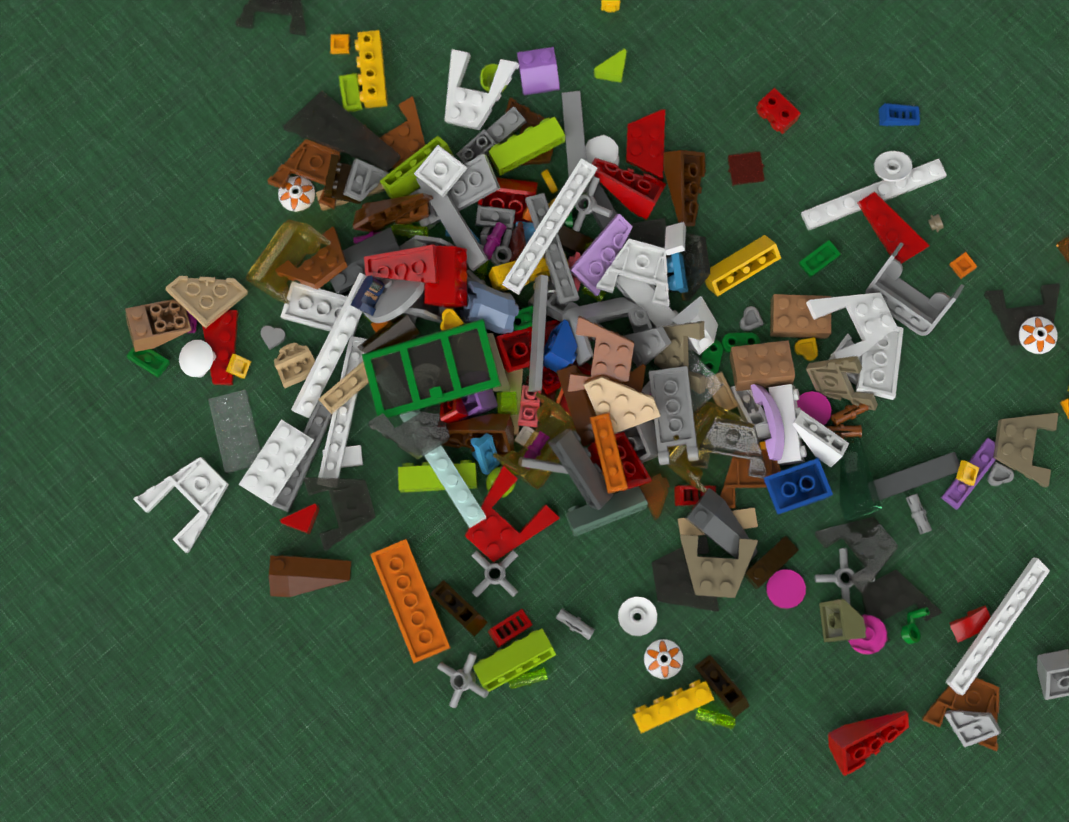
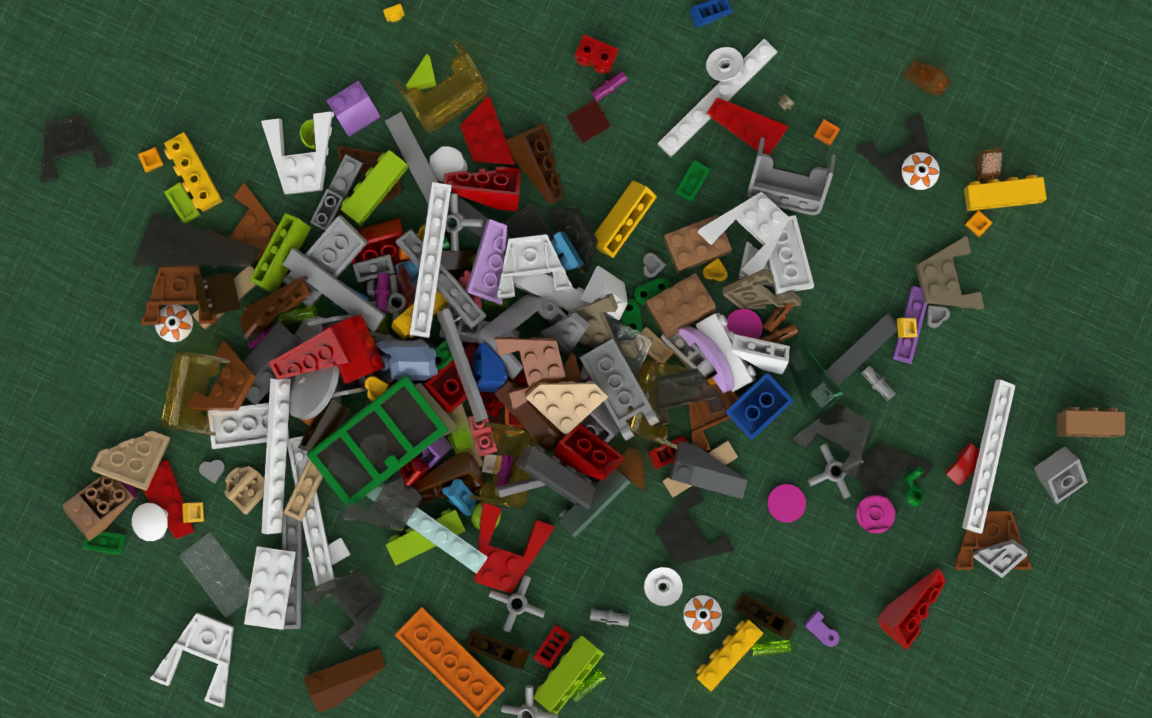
camera: 30 degrees left, 5 degrees up
(303, 519) = (318, 630): red slope -> none
(362, 180) = (232, 286): light grey wing -> none
(368, 295) = (288, 397): dark blue leg -> none
(440, 171) = (304, 248): white tile -> none
(549, 181) = (409, 212): yellow tile -> none
(608, 453) = (575, 451): orange tile -> none
(628, 96) = (450, 96): none -> clear yellow windscreen
(675, 238) = (551, 220): white tile -> none
(717, 575) = (720, 518): dark tan wing -> none
(769, 722) = (820, 630): none -> medium lavender leg
(771, 562) = (763, 485): dark brown slope -> none
(778, 144) = (609, 86): none -> magenta pin
(841, 621) = (848, 513): olive slope -> none

